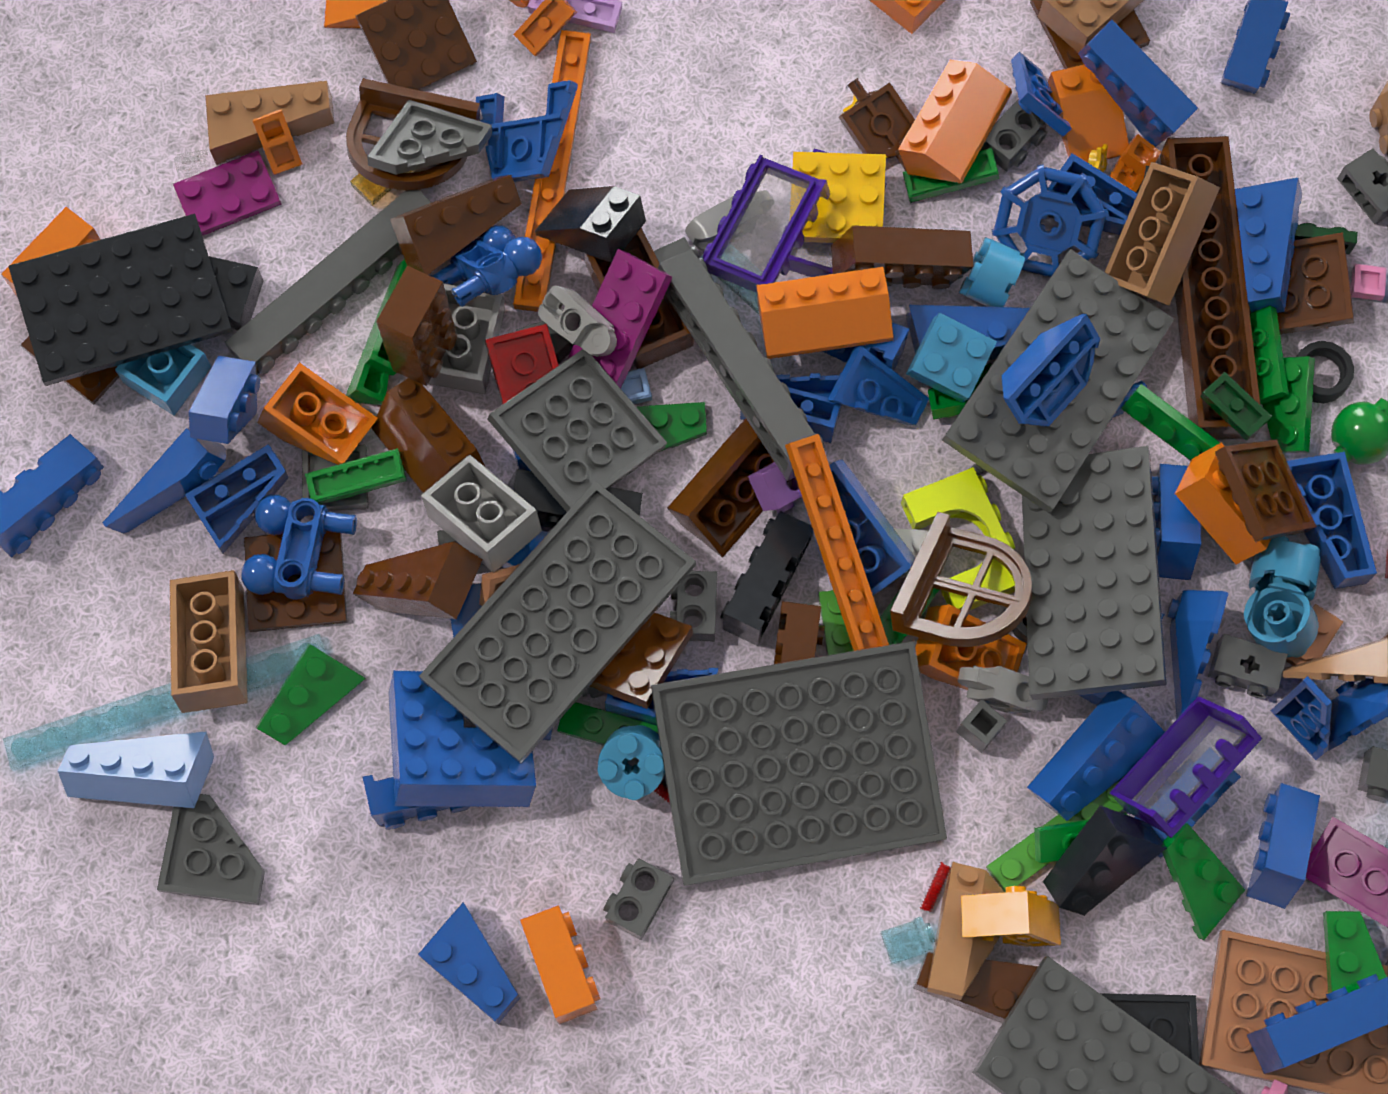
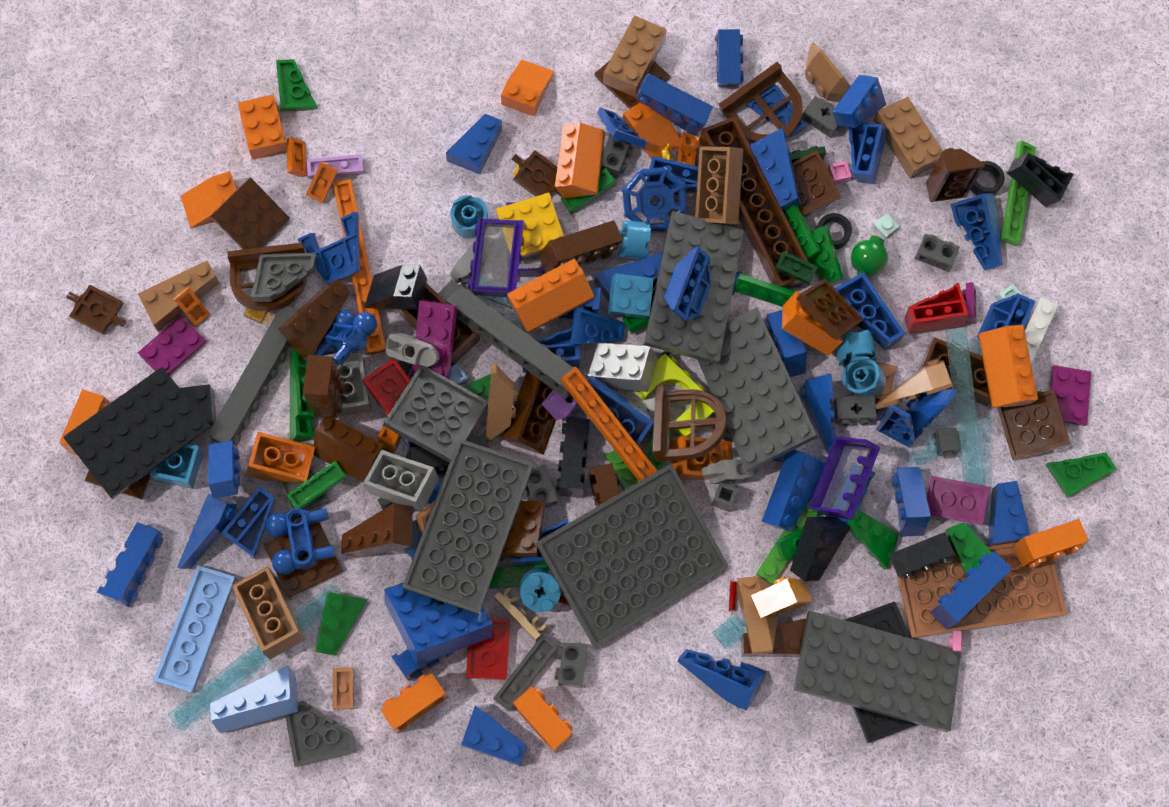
camera: 25 degrees left, 0 degrees up
(93, 626) = (194, 629): none -> light blue plate
(138, 99) = (96, 309): none -> reddish brown plate
(276, 800) = (343, 688): none -> nougat plate
(371, 861) = (413, 702): none -> orange brick
(491, 447) = (389, 439): none -> orange slope
(517, 836) = (490, 657): none -> red plate
(564, 881) = (525, 672): none -> dark grey plate
(588, 790) = (519, 614): none -> tan plate
(682, 450) = (500, 403): none -> medium nougat wedge
(743, 143) = (465, 207): none -> dark azure brick
(802, 45) = (476, 144): none -> blue wedge
(880, 1023) = (731, 682): none -> blue wedge
(899, 463) = (623, 366): none -> brick
(1269, 939) = (922, 556): none -> black wedge
(1273, 107) = (753, 90): none -> reddish brown window
(1303, 152) = (772, 97): none -> blue wing
(1331, 780) = (922, 456): none -> clear light blue bracket

